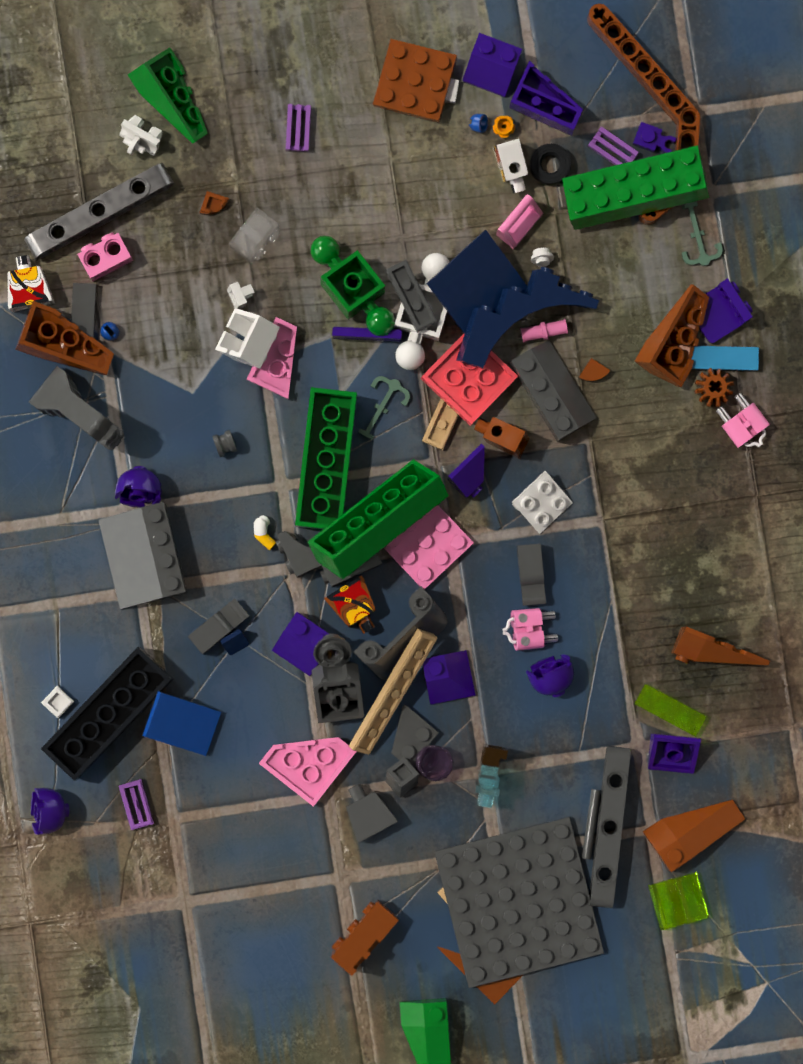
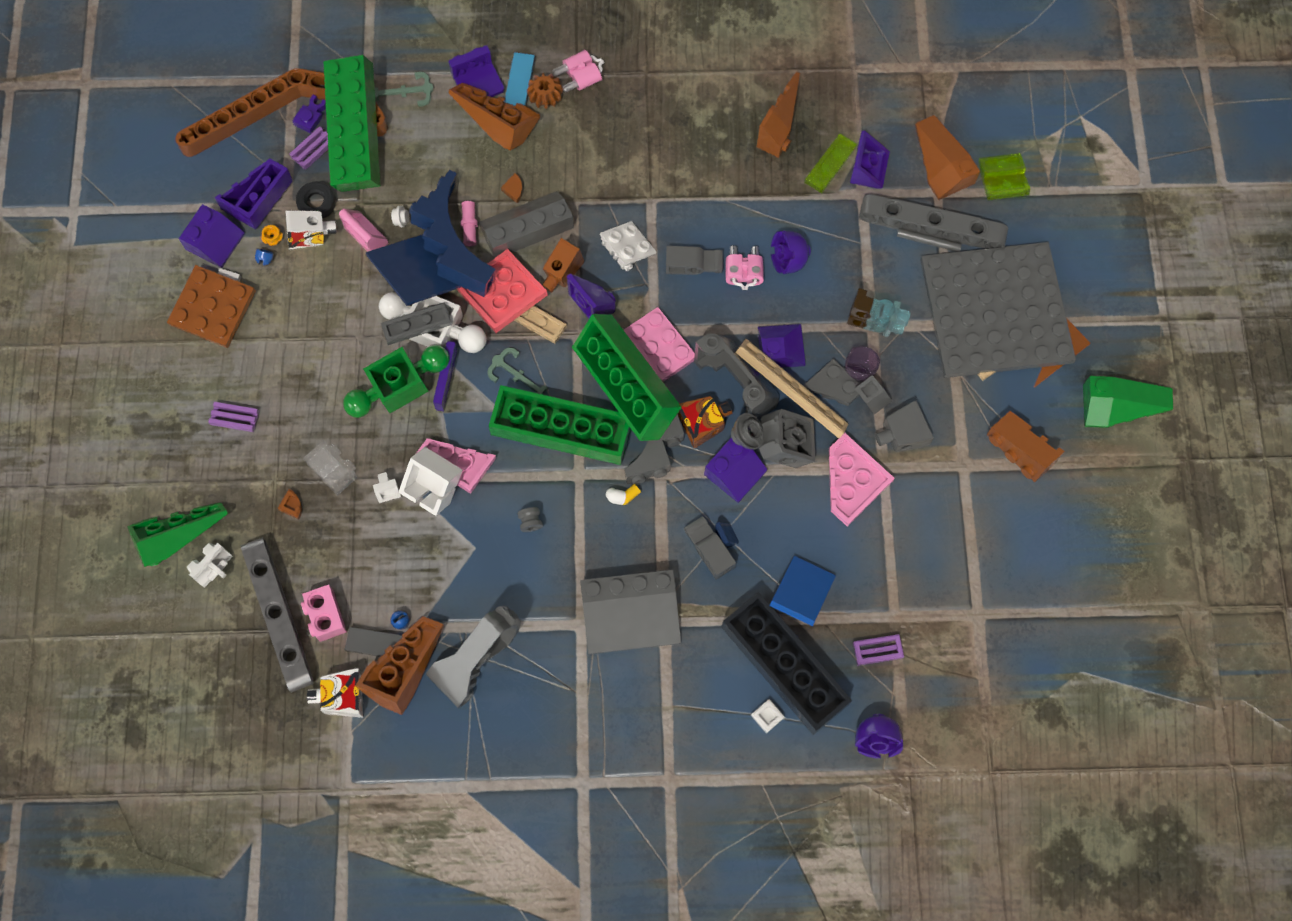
camera: 80 degrees left, 15 degrees down
(138, 487) = (561, 605): dark purple cylinder -> none

